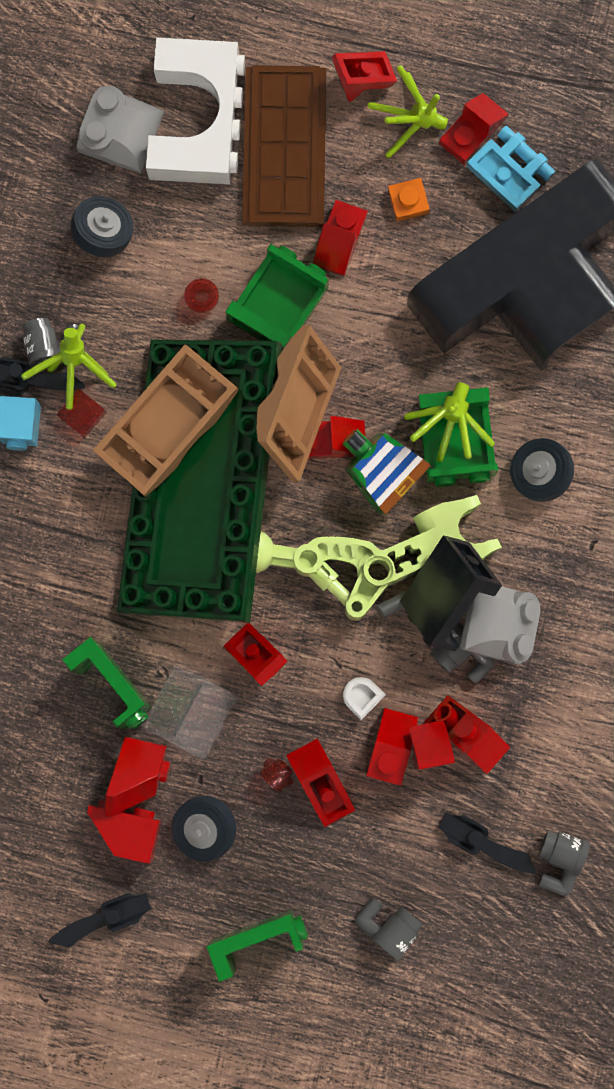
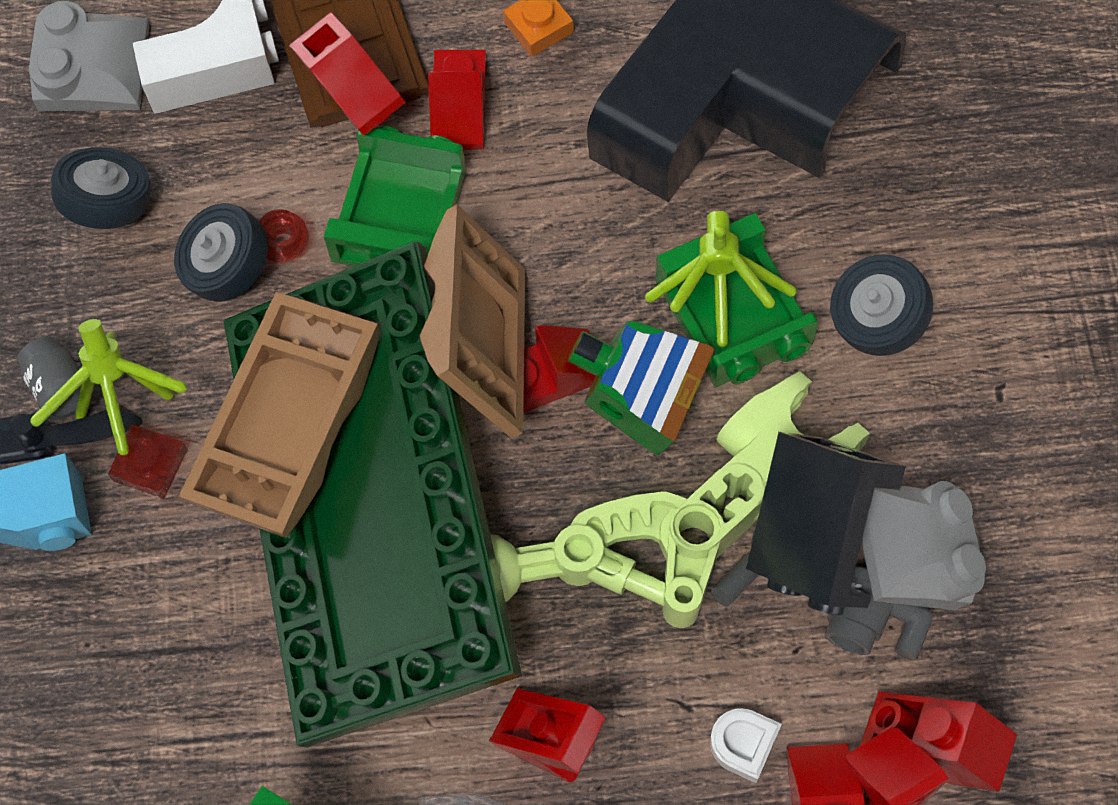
camera: 20 degrees left, 15 degrees down
(162, 296) = (221, 252): none -> black wheel
(273, 208) = (347, 74): none -> red slope

